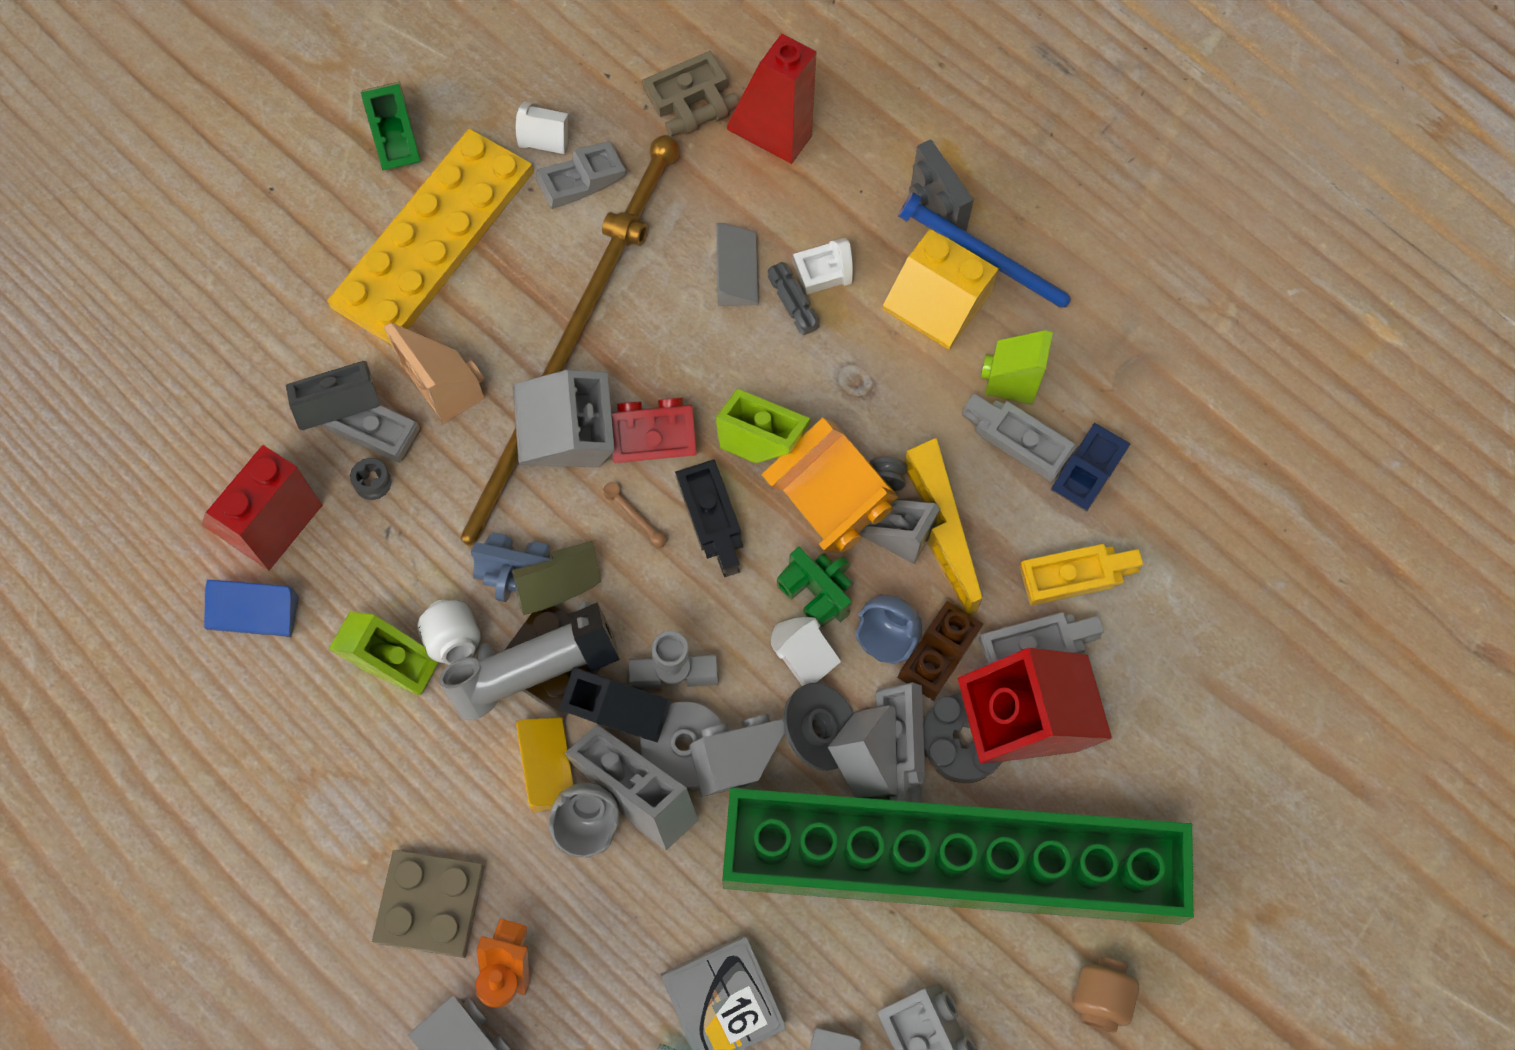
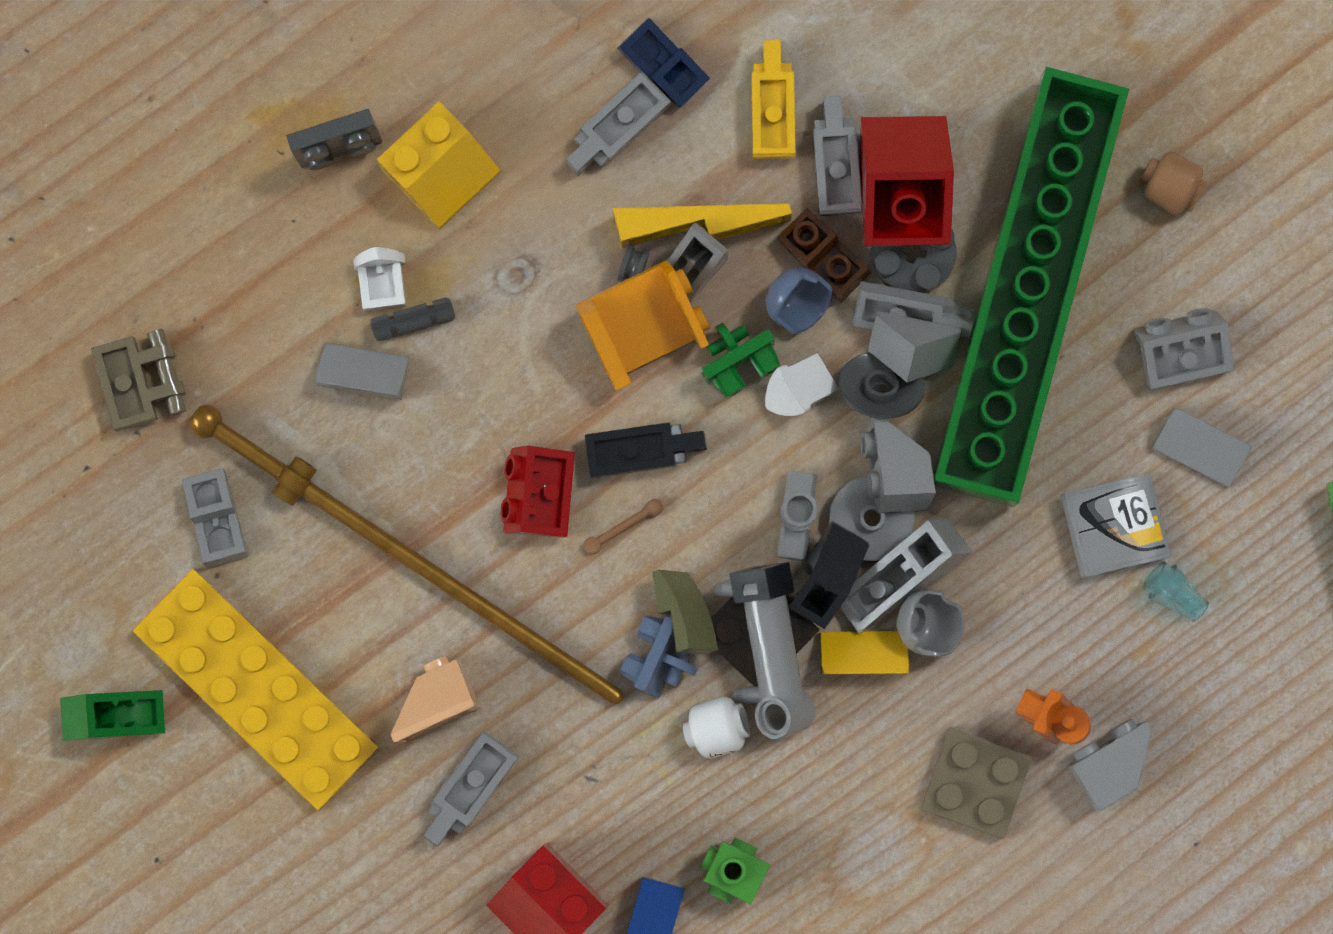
camera: 75 degrees left, 15 degrees up
(306, 672) = (746, 883): none -> bright green brick
(332, 395) = (438, 813): dark grey slope -> none
(379, 486) = (521, 796): dark grey bush -> none
(383, 651) = (725, 795): lime slope -> none
(541, 128) = (151, 550): white tile -> none
(564, 419) = (516, 578): light grey slope -> none
(758, 427) = (569, 380): lime slope -> none
(779, 100) = (191, 291): red slope -> none
(917, 211) = (356, 172): blue bar -> none
(1017, 366) = (547, 108): lime slope -> none

